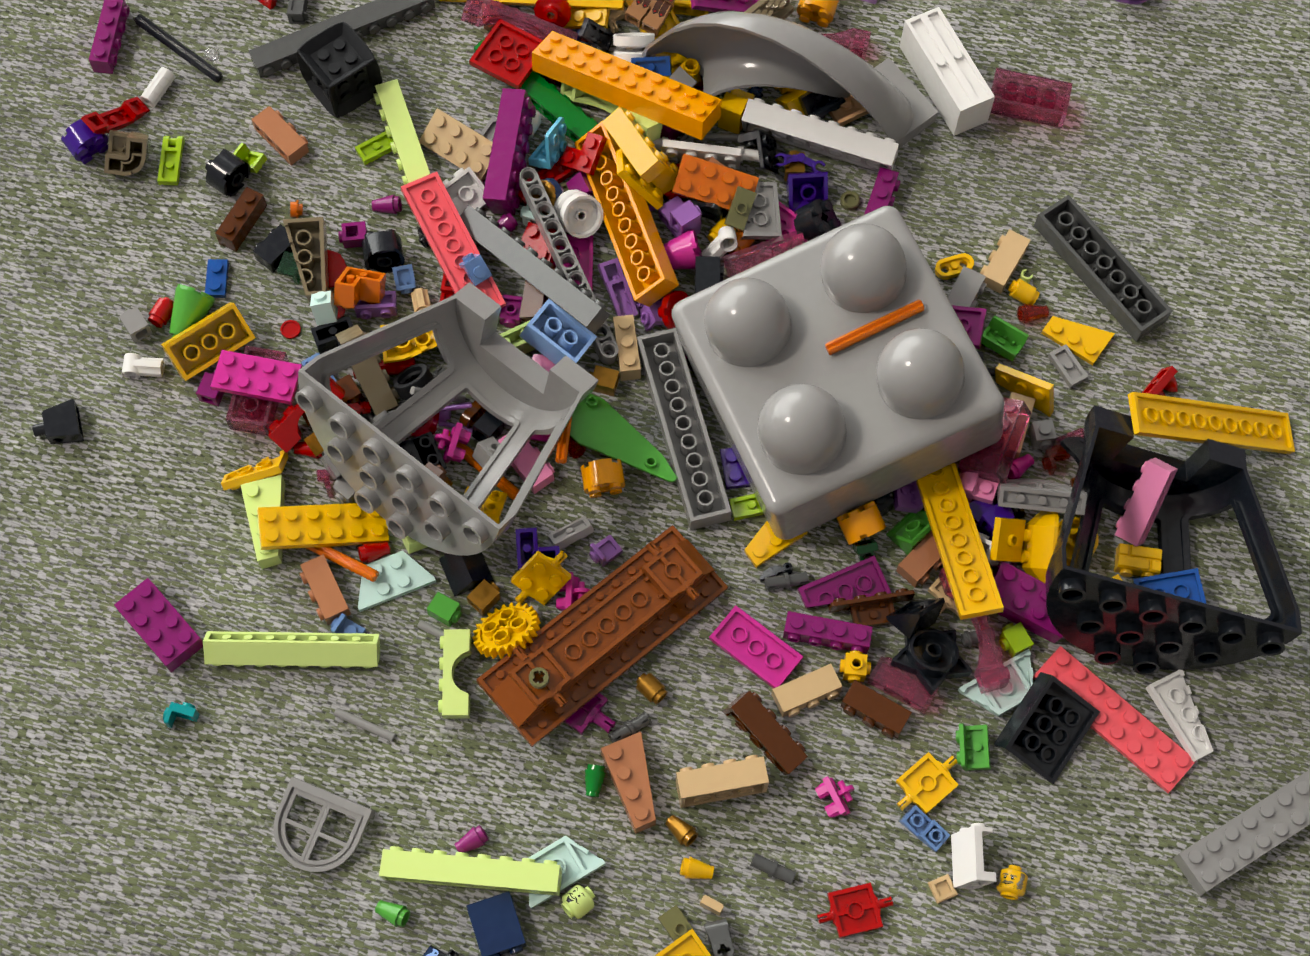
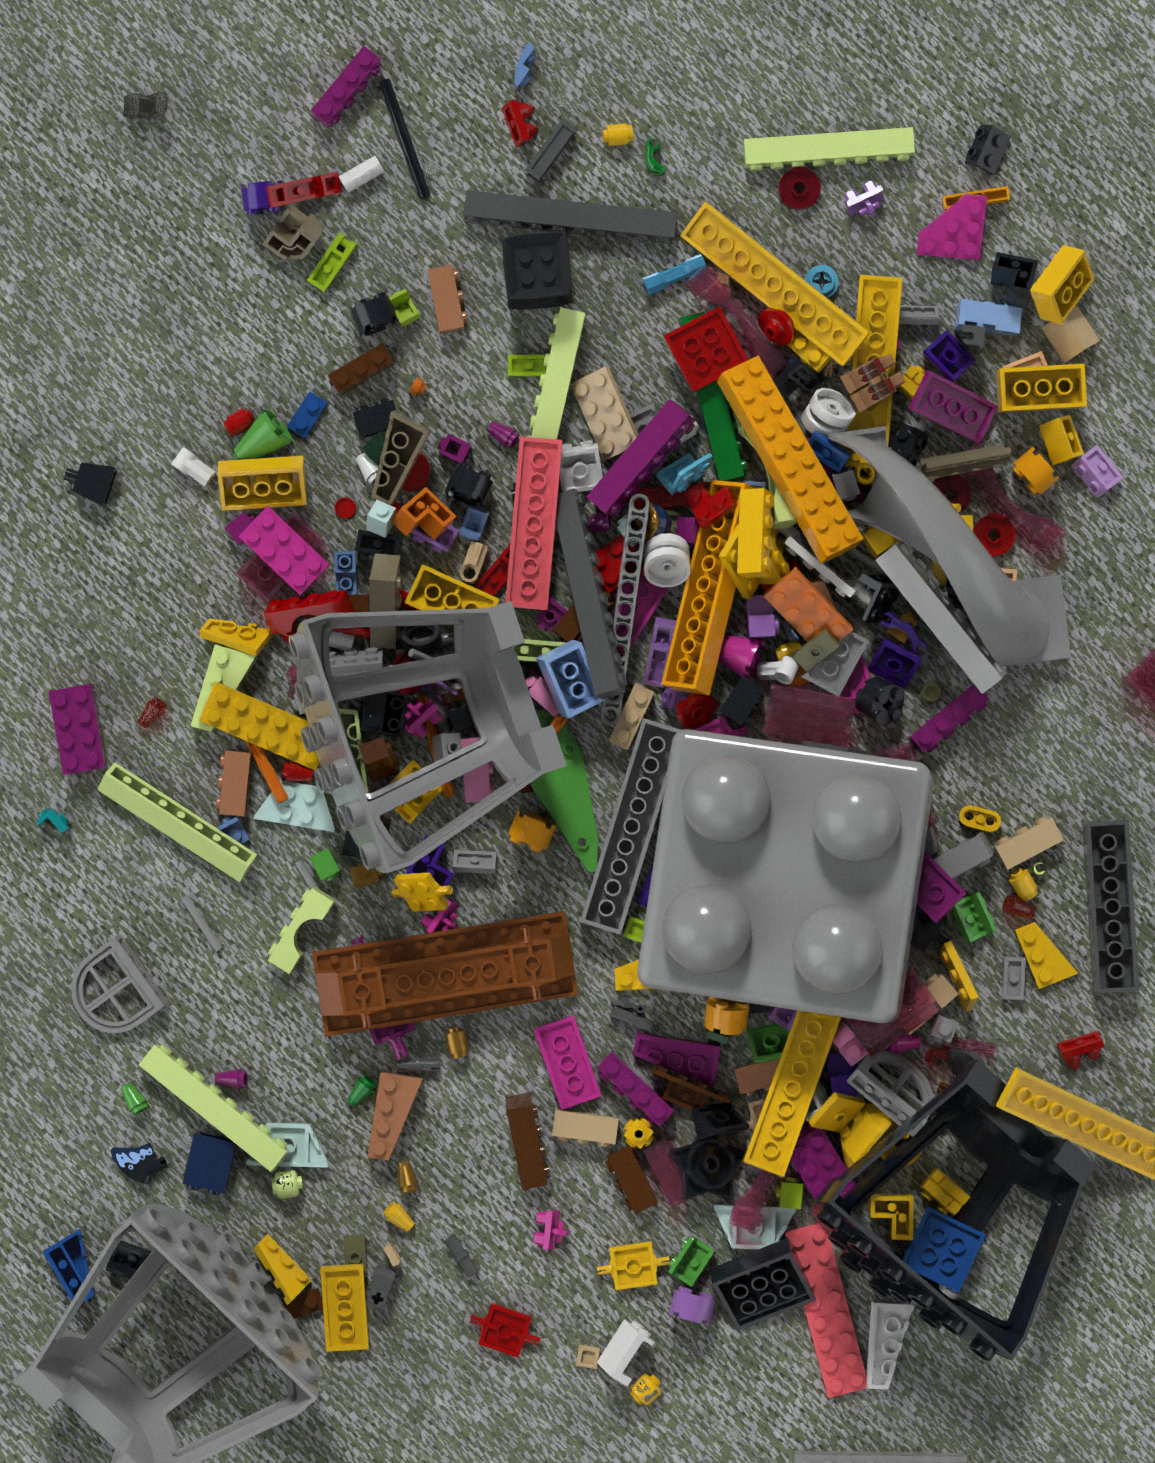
camera: 35 degrees right, 20 degrees up
(135, 324) = (208, 421): light grey brick -> none
(217, 575) = (153, 710): none -> clear red cone
(292, 288) = (367, 467): none -> white cone
(441, 36) = (660, 280): none -> dark azure axle
(475, 268) = (538, 562): medium blue bracket -> none
(506, 630) = (364, 920): yellow gear -> none
(538, 685) = (362, 999): olive bush -> none
(605, 551) = (494, 896): medium lavender bracket -> none
(607, 378) = (591, 735): pearl gold brick -> none
(721, 781) = (462, 1162): tan brick -> none
(874, 327) = (831, 877): orange axle -> none
(924, 828) = (606, 1299): medium blue slope -> none
(946, 71) = (1105, 622): white brick -> none
(1001, 782) = (692, 1306): none -> medium lavender brick
(1145, 501) = (980, 1152): bright pink brick -> none

